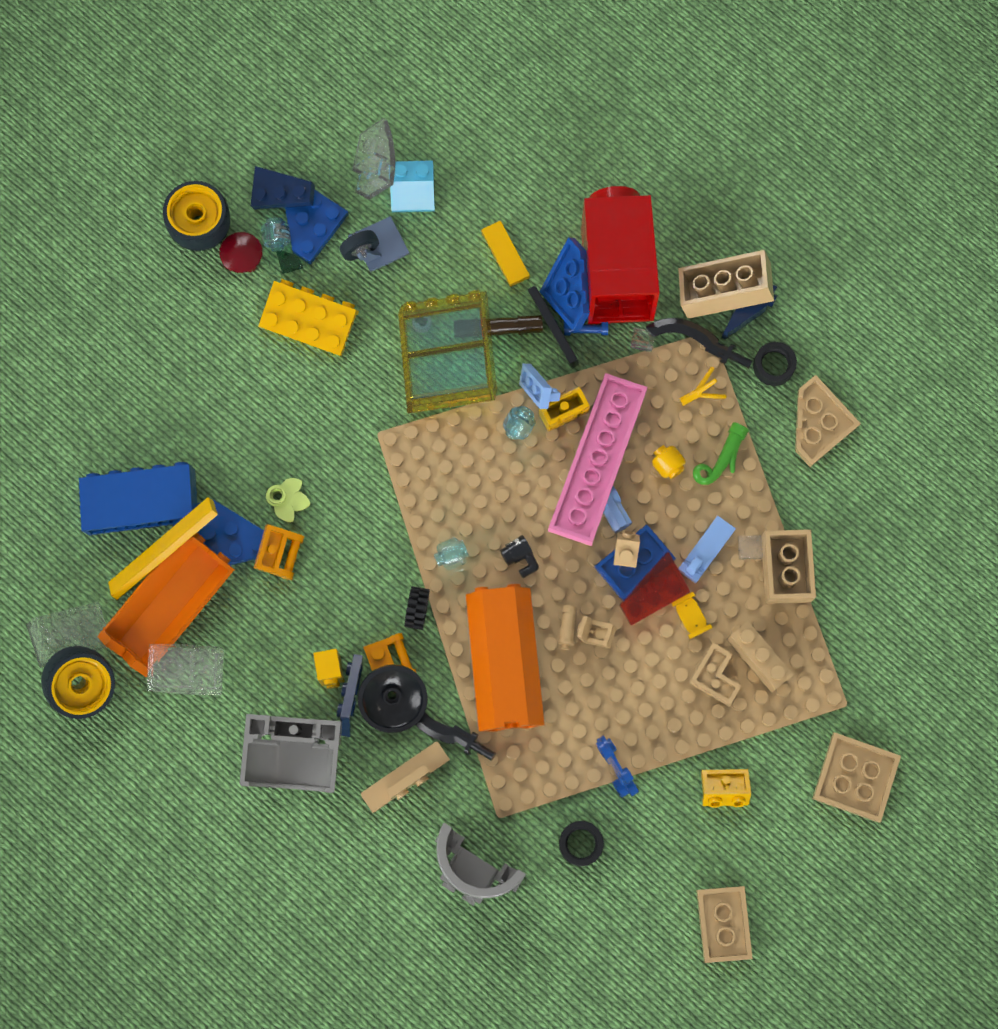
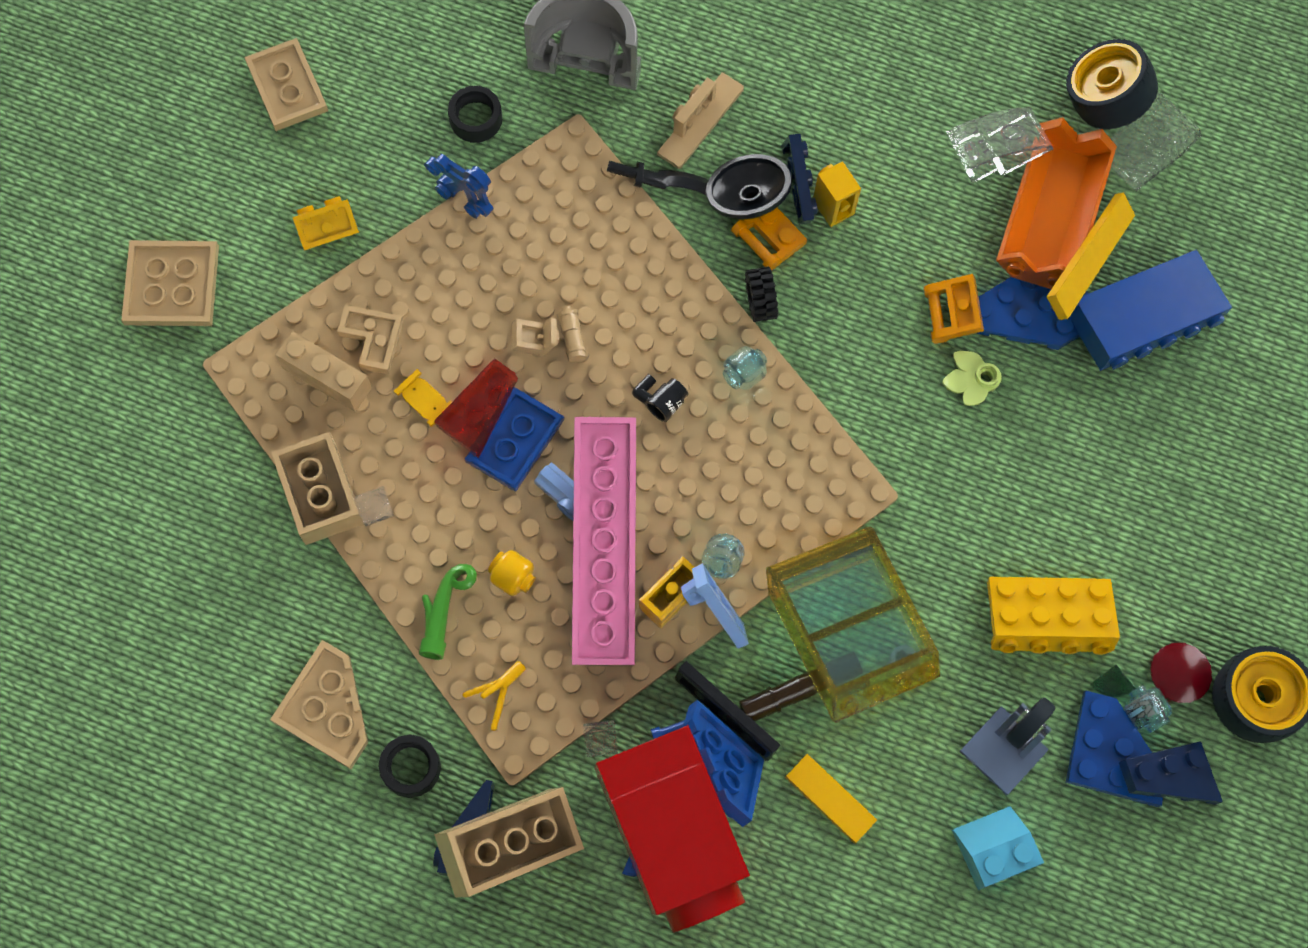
camera: 160 degrees right, 5 degrees down
(292, 755) = (846, 97): light grey piece -> none
(375, 160) = (1065, 861): clear slope -> none
(504, 658) = (634, 269): orange panel -> none
(626, 549) = (530, 444): tan bracket -> none
(701, 335) = (523, 770): black sword -> none
(706, 549) = (429, 485): light blue hinge -> none

